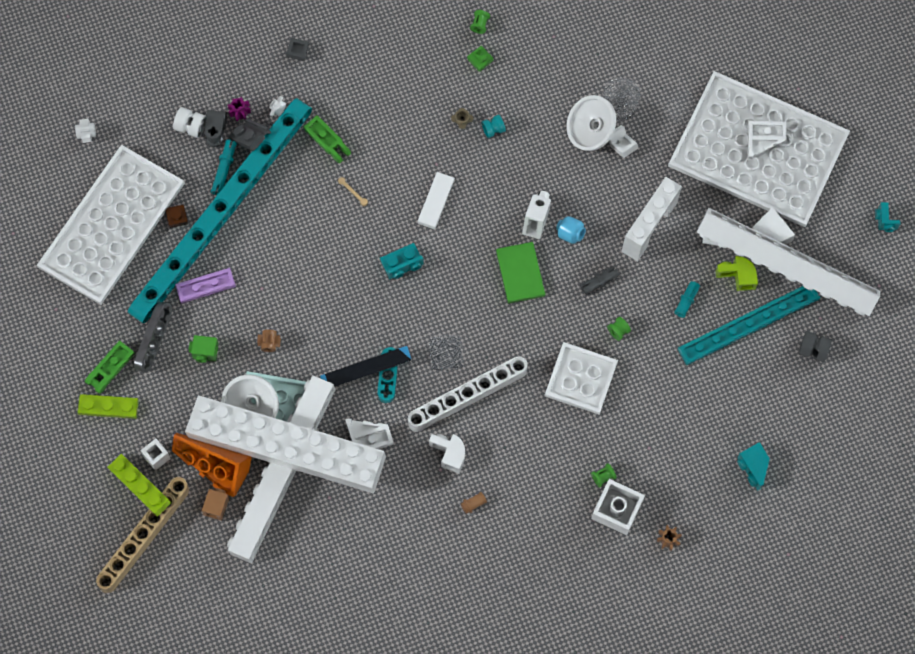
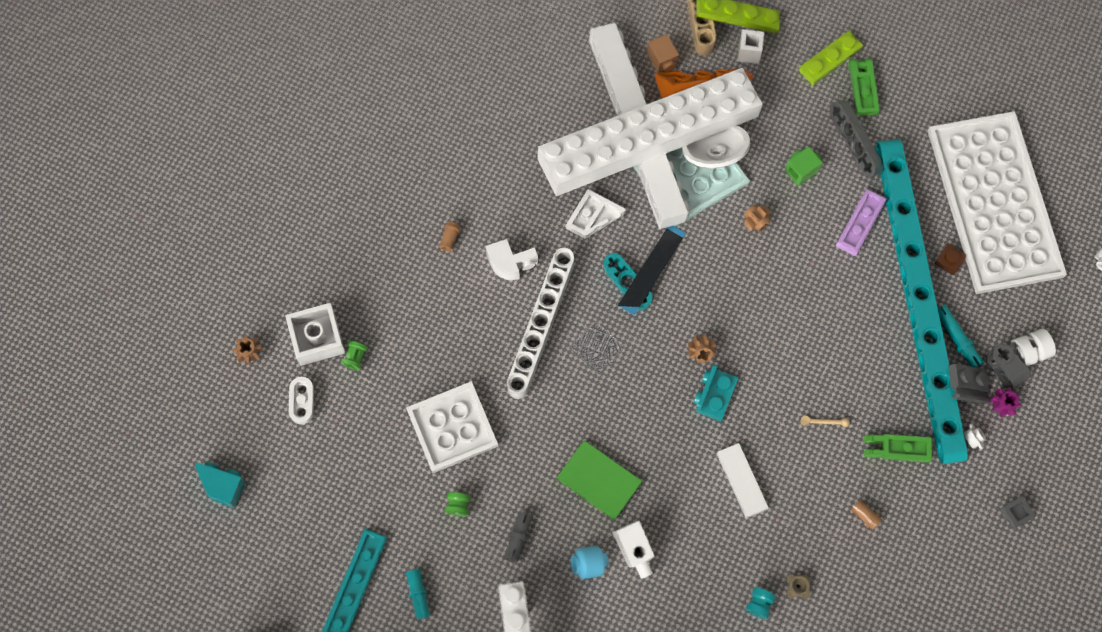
camera: 140 degrees right, 0 degrees up
(384, 120) = (867, 515): none -> medium nougat pin
(385, 291) = (702, 348): none -> medium nougat gear
(660, 476) = (301, 401): none -> white plate

